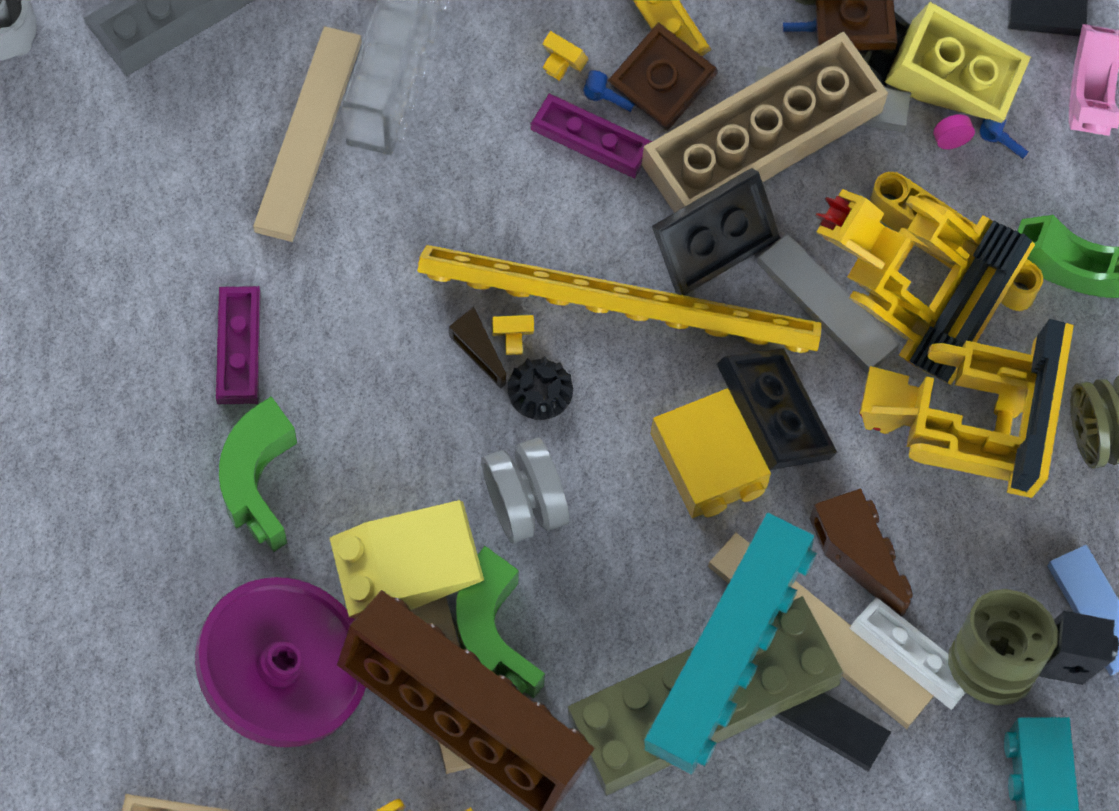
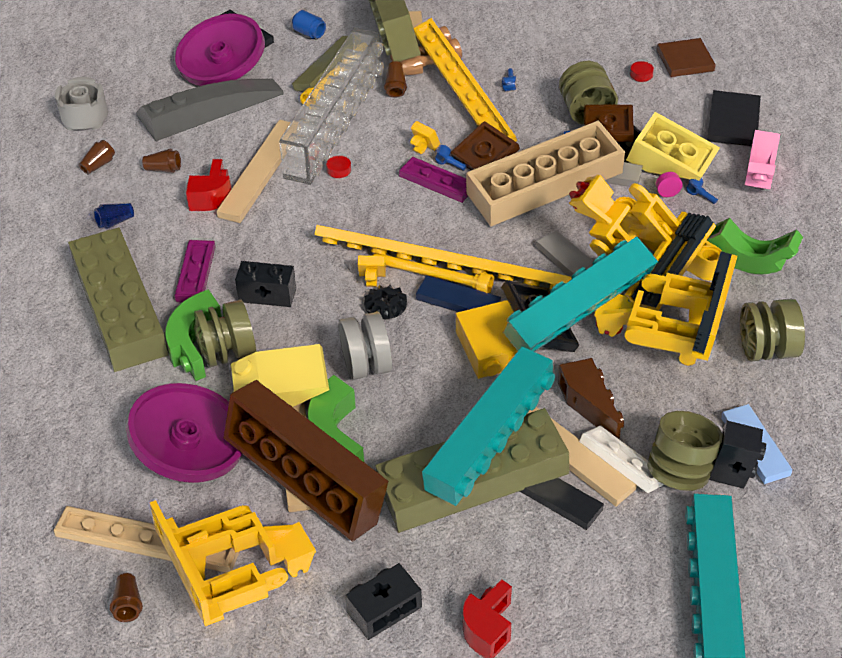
camera: 10 degrees right, 20 degrees down
(39, 124) = (97, 156): none -> reddish brown cone
(88, 243) = (112, 214): none -> clear blue cone
(130, 414) = (118, 299): none -> olive brick
(149, 127) = (163, 161): none -> reddish brown cone
(238, 188) = (208, 191): none -> red brick
(310, 480) = (224, 333): none -> olive wheel
(355, 372) = (266, 283): none -> black brick
(433, 119) = (338, 166): none -> red tile
(473, 340) = (346, 275): dark brown piece -> none
(648, 372) = (453, 295): none -> dark blue tile
(680, 344) = (481, 282): none -> yellow piece
(716, 232) = (509, 222): black tile -> none
(841, 395) = (581, 296): none -> teal brick

